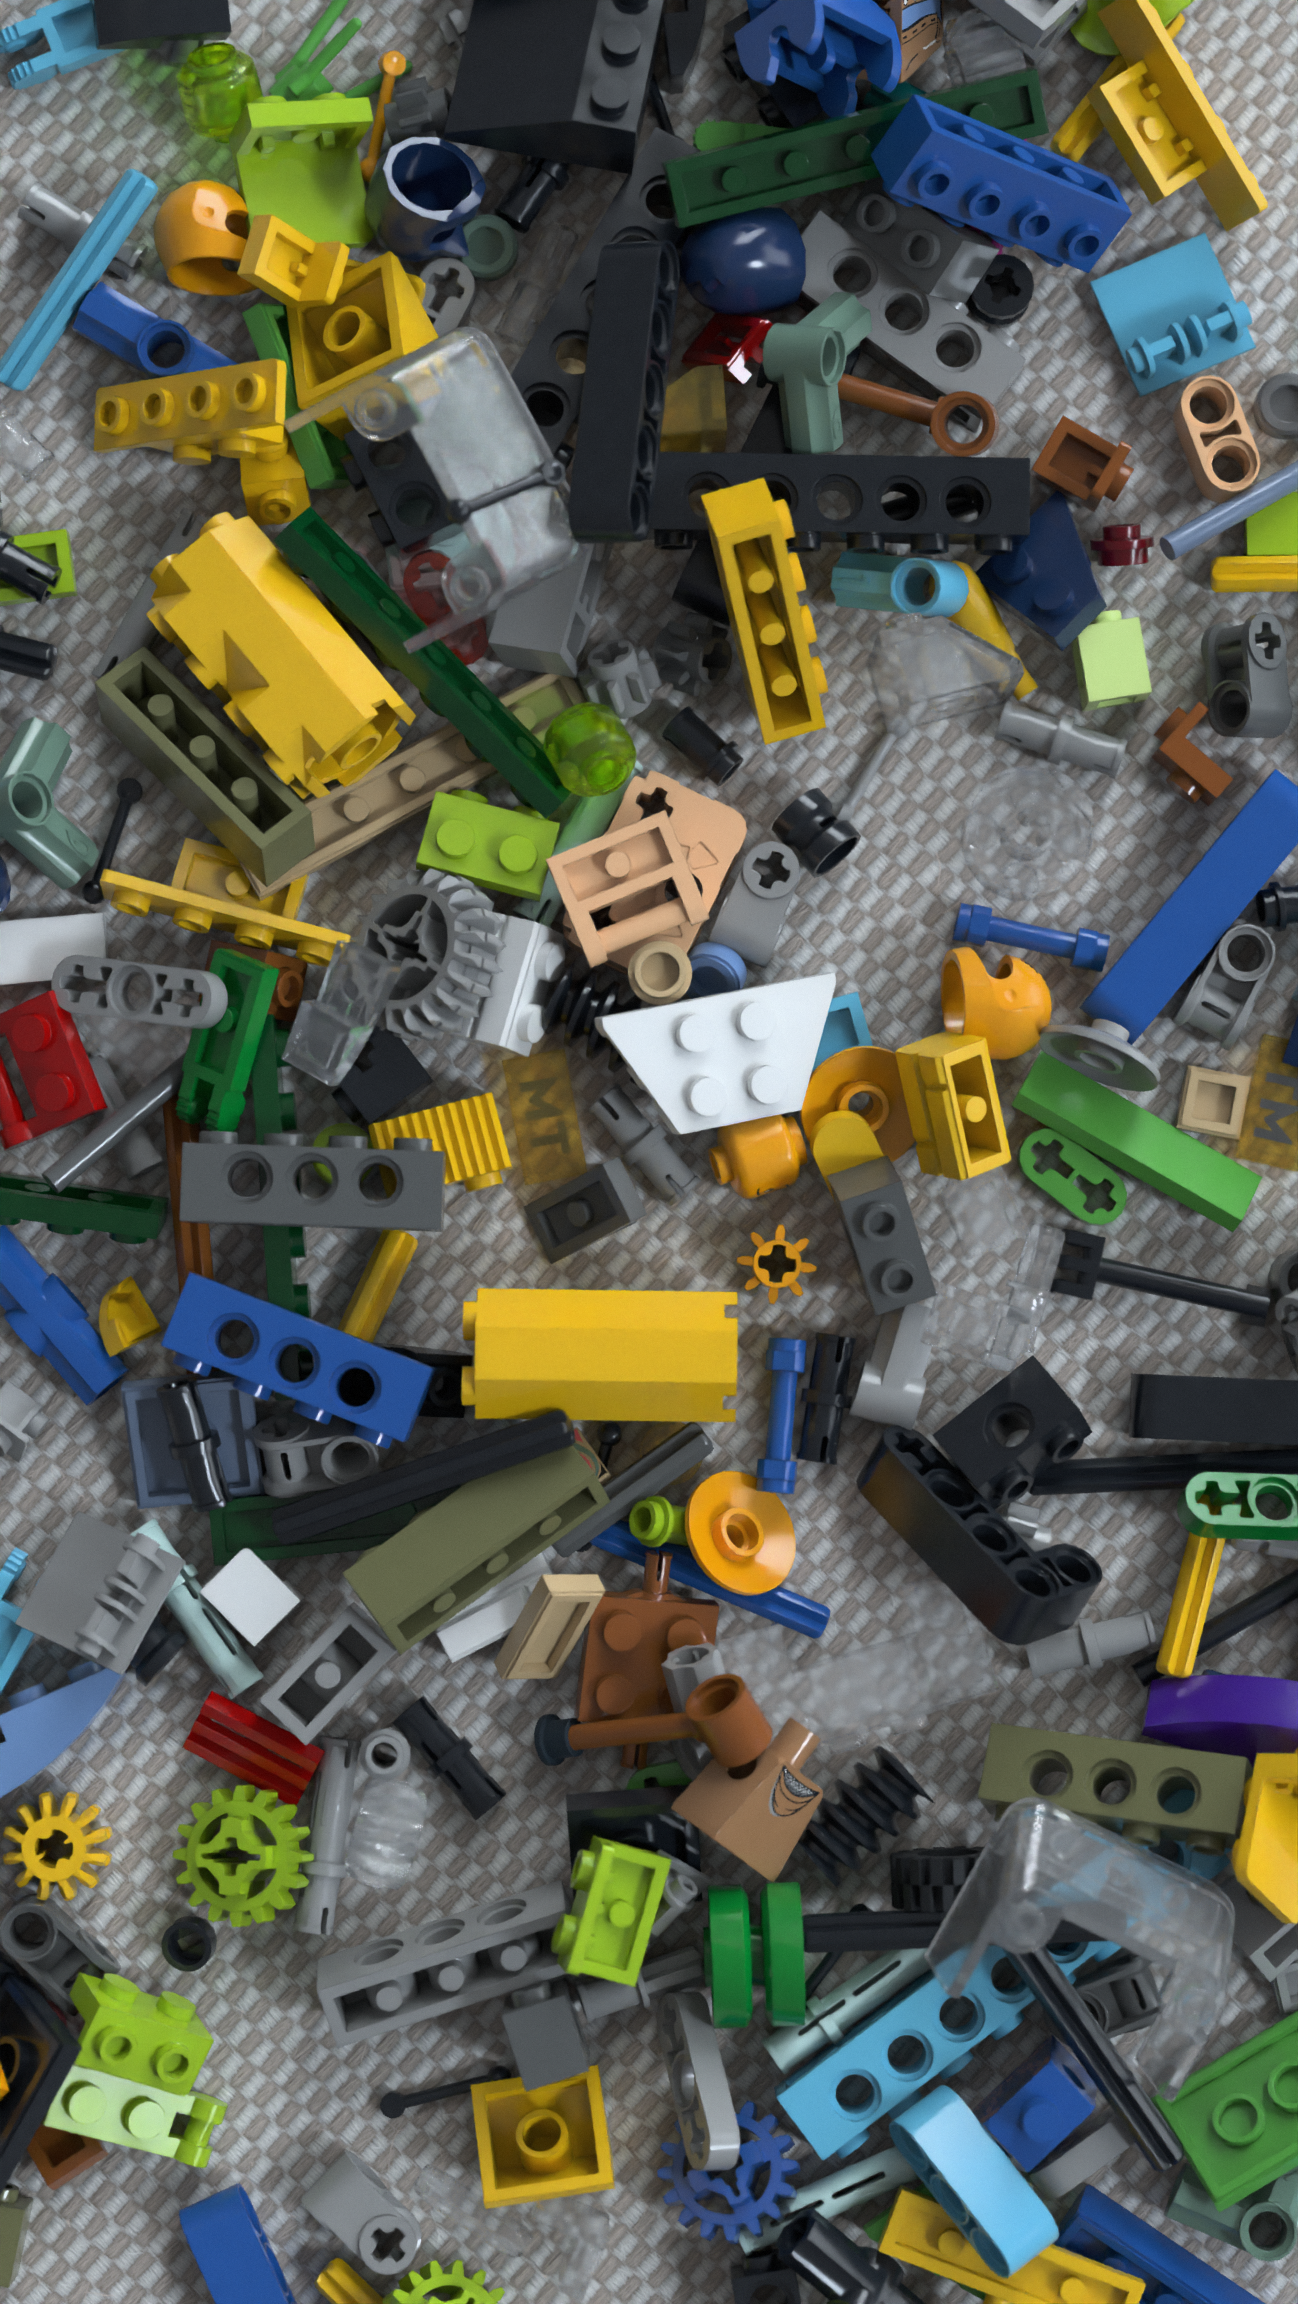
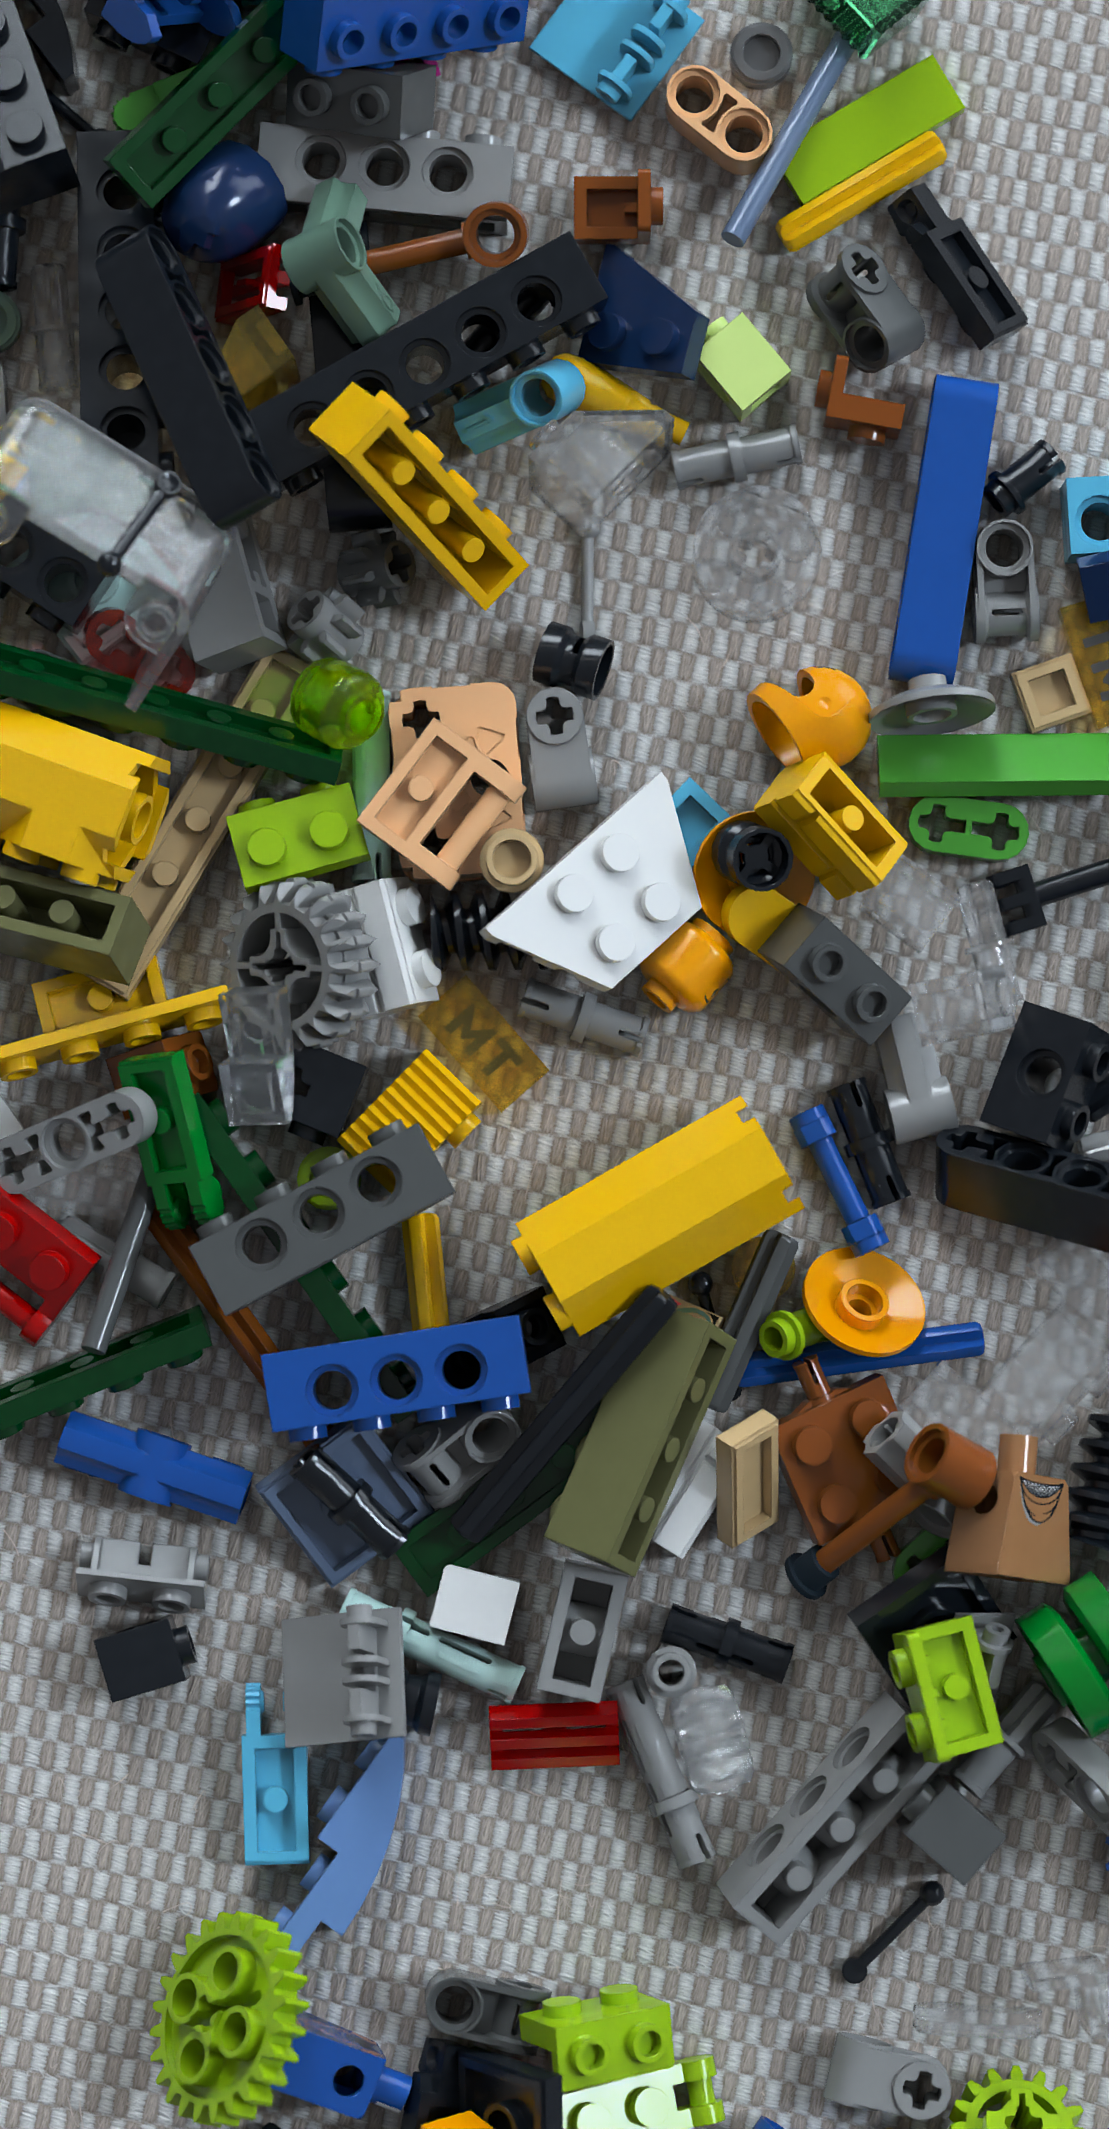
camera: 25 degrees left, 0 degrees up
(70, 1865) = (415, 1908): yellow gear -> none
(125, 1318) = (224, 1429): yellow tile -> none
(195, 1955) = (609, 1941): black hinge -> none
(243, 1827) = (611, 1853): lime gear -> none
(542, 2139) = (1000, 1922): yellow slope -> none
(585, 1210) = (566, 1103): dark grey slope -> none
(703, 747) = (432, 644): black pin -> none
(715, 970) = (557, 830): medium blue tile -> none
(790, 1253) = (752, 1069): light orange gear -> none
(878, 1102) = (765, 860): none -> black wheel
(995, 303) = (459, 114): black wheel -> none
(1085, 949) = (864, 626): blue bar -> none
(1122, 545) = (691, 259): dark red plate -> none

